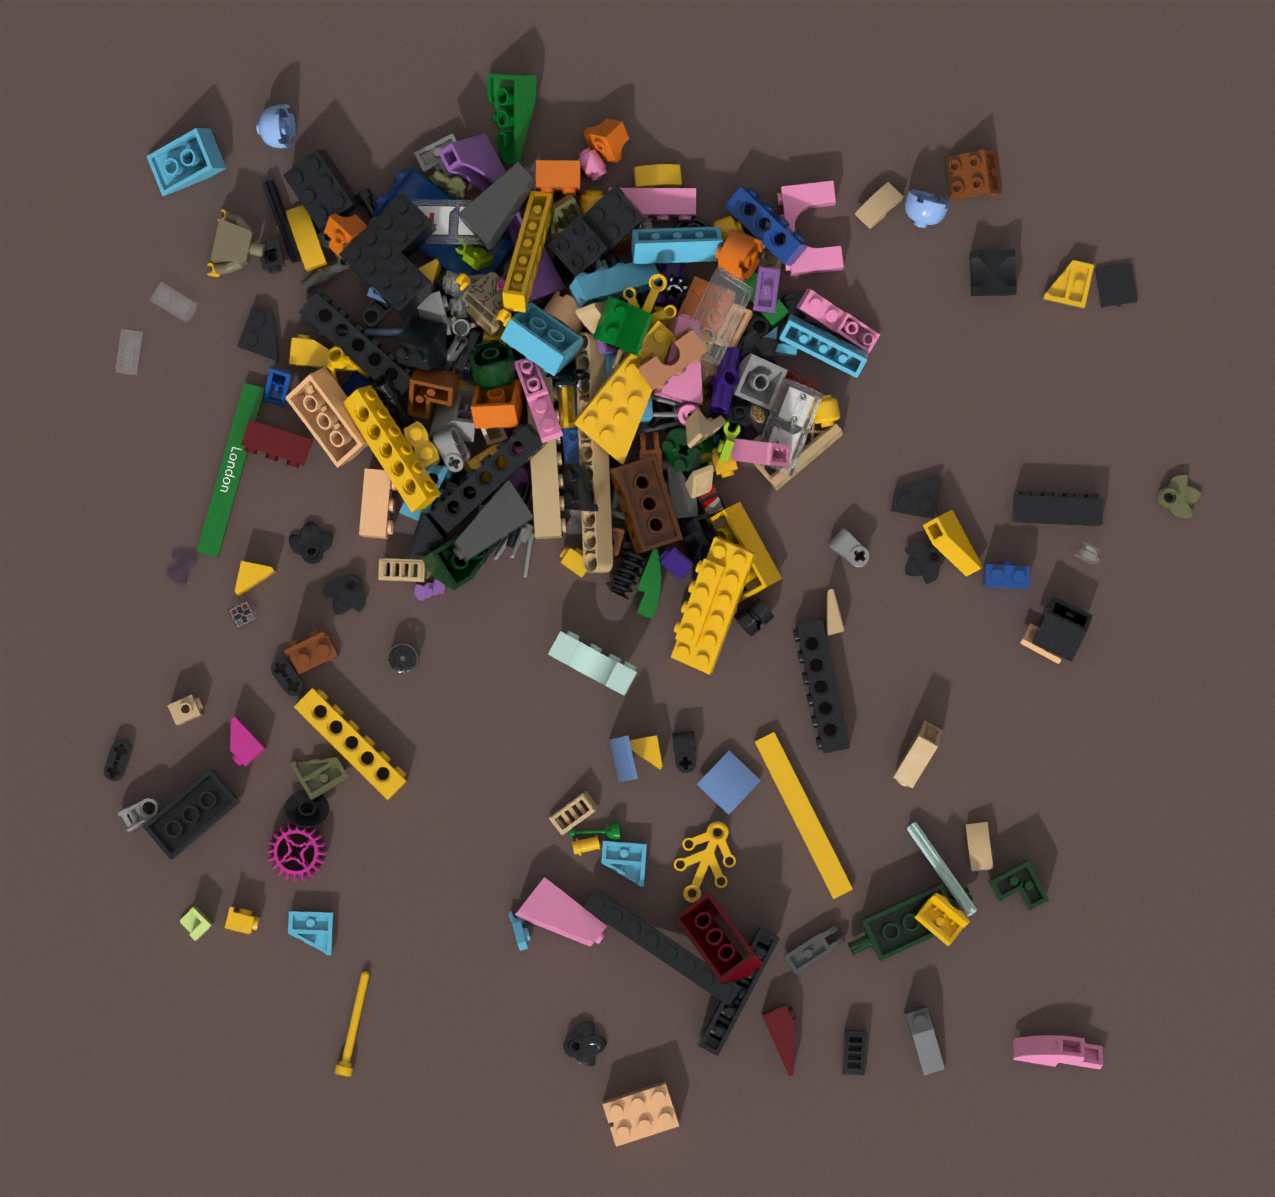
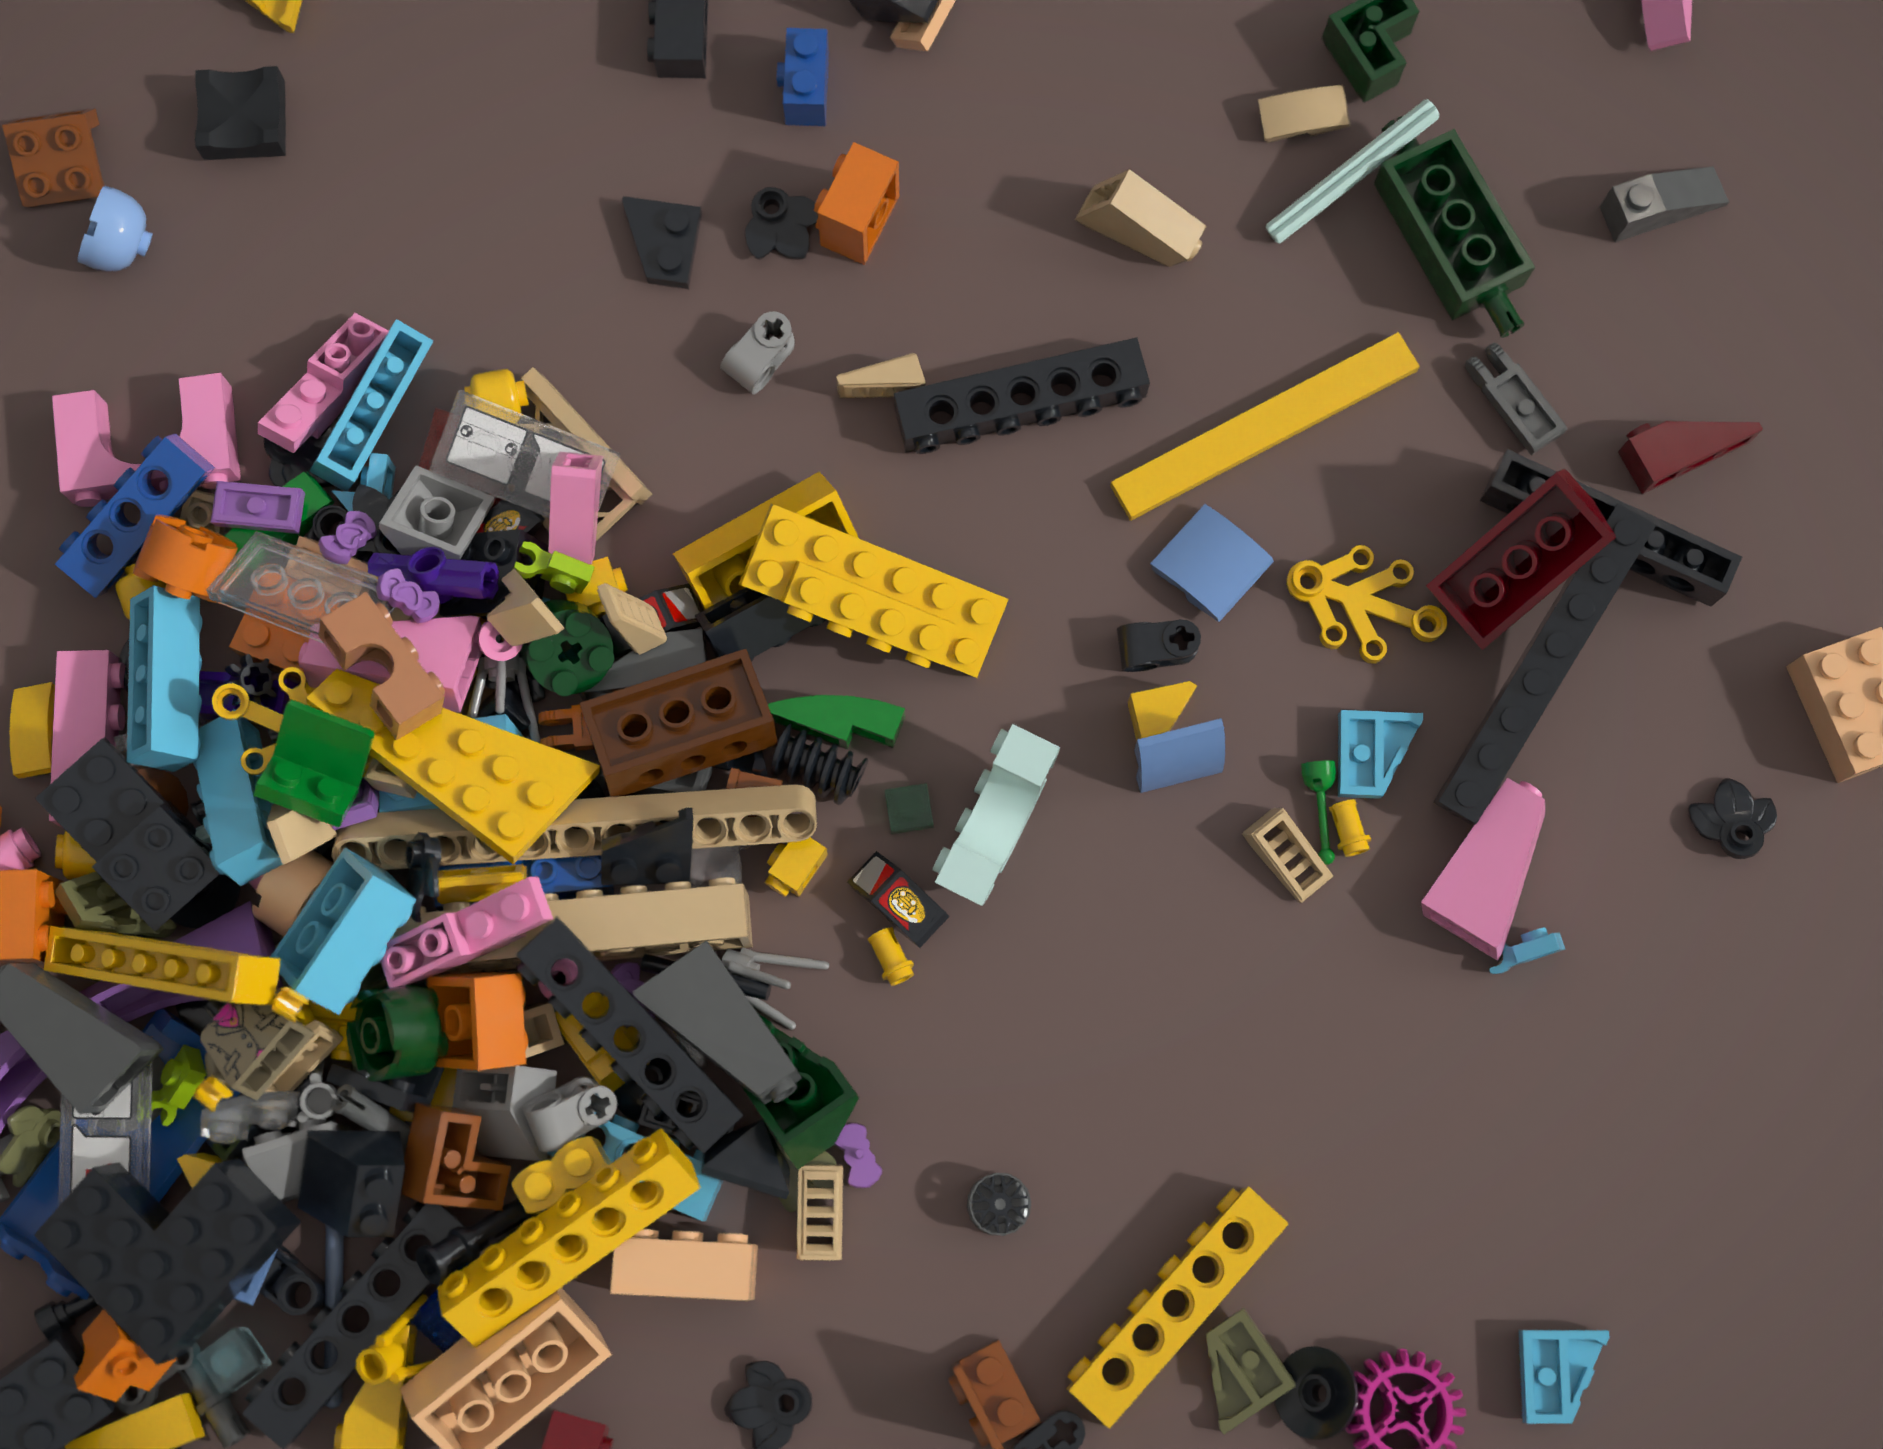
camera: 90 degrees left, 10 degrees down
(342, 285) = (233, 1360): none -> clear light blue brick
(343, 596) = (877, 1332): black plate -> none
(344, 1067) = (1830, 1294): yellow piece -> none
(527, 608) = (891, 956): none -> yellow pin
(556, 613) = (898, 899): none -> slope
(603, 620) = (909, 808): none -> clear green plate
(676, 563) = (795, 665): dark purple brick -> none
(711, 368) = (407, 596): none -> medium lavender piece
(747, 337) = (348, 537): none -> medium lavender piece
(754, 616) = (890, 519): black wheel -> none
(854, 1034) = (1670, 335): black slope -> none
(878, 205) = (107, 318): tan slope -> none
(929, 602) = (857, 202): none -> orange brick
(942, 918) = (1450, 153): yellow bracket -> none
(952, 542) = (745, 168): yellow slope -> none

